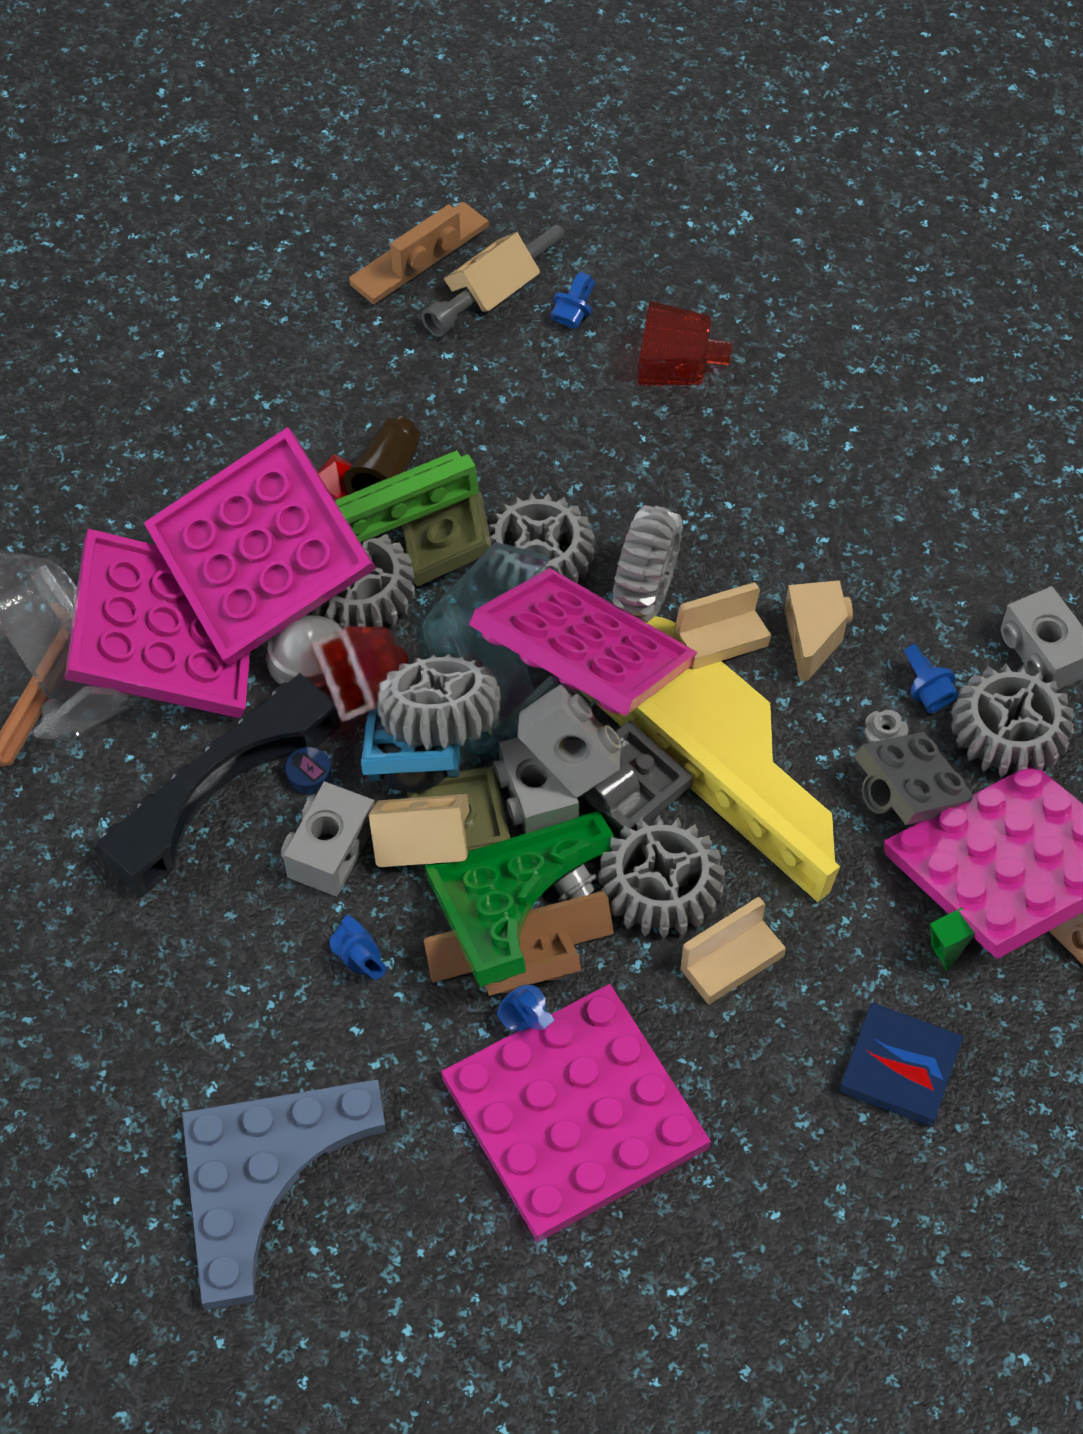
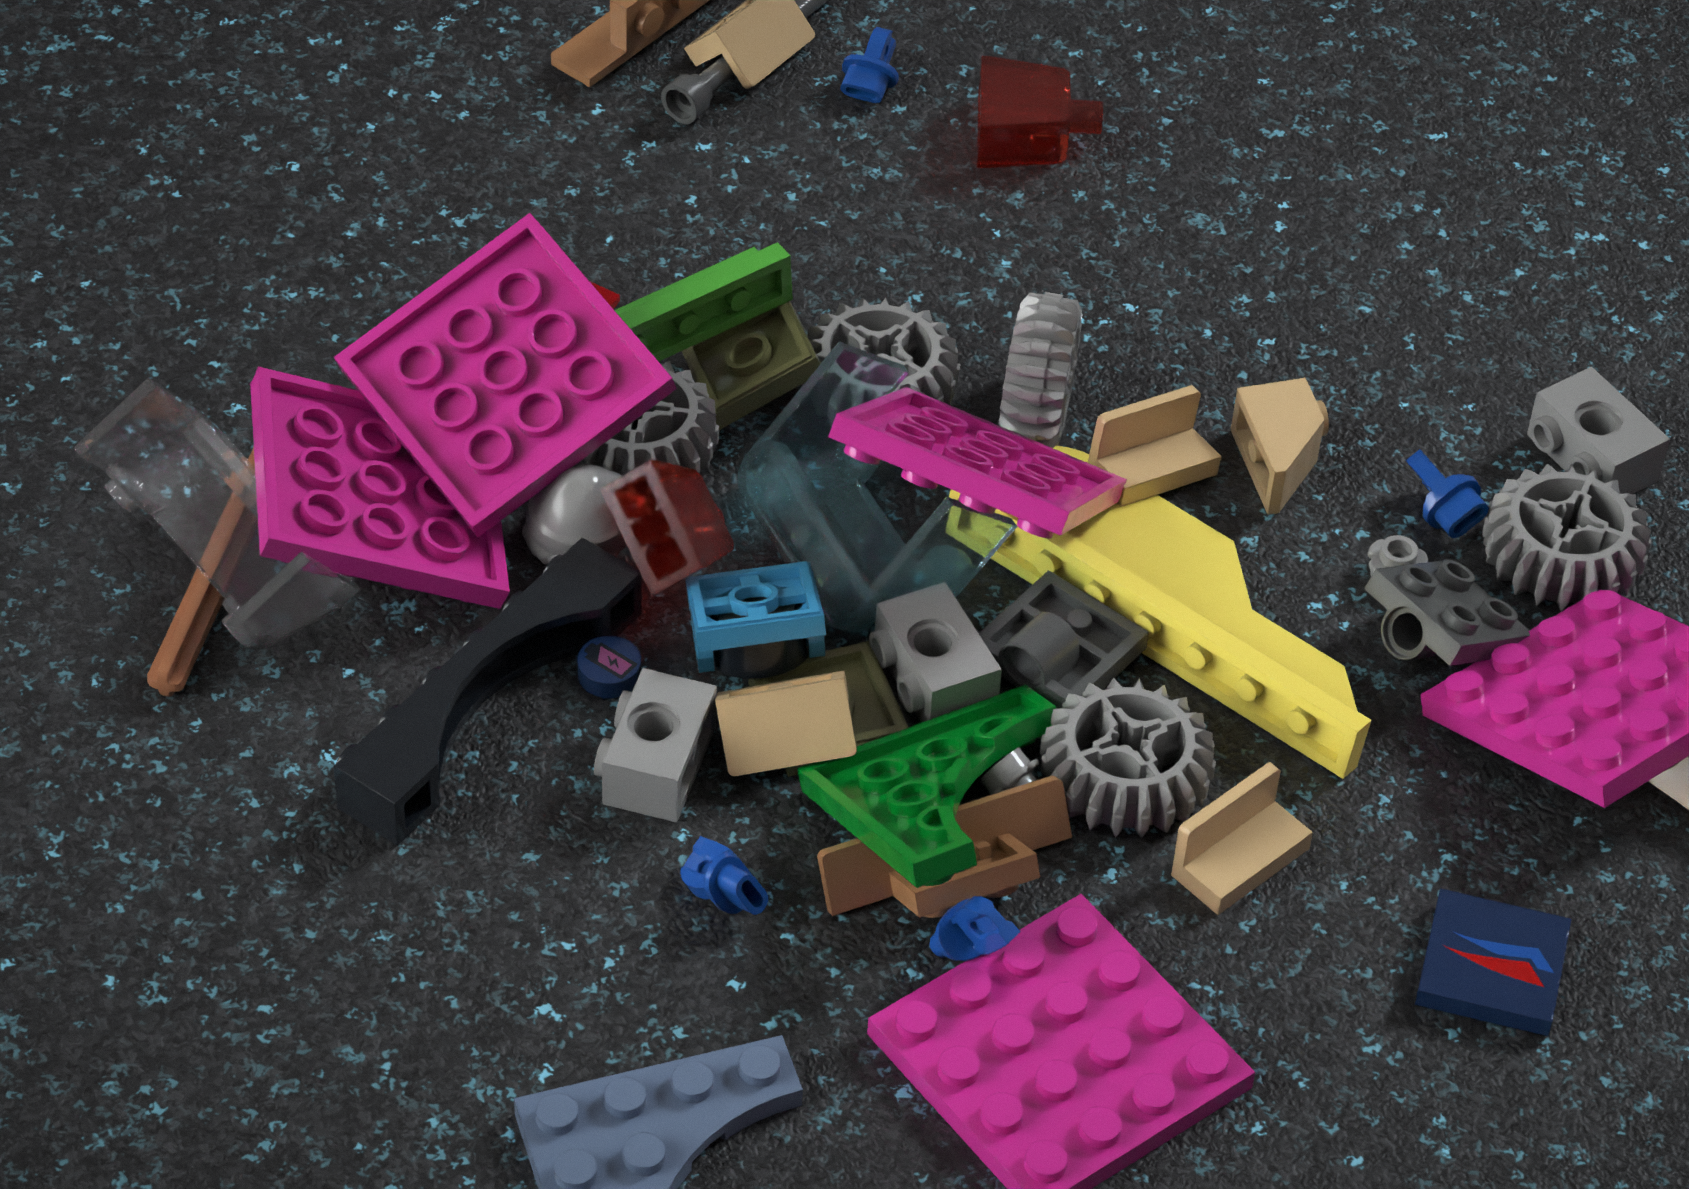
camera: 10 degrees left, 10 degrees down
(386, 454) = (650, 261): dark brown plant -> none
(439, 701) = (791, 550): light grey gear -> none
(578, 762) = (994, 615): light grey brick -> none
(950, 937) = (1533, 797): green piece -> none

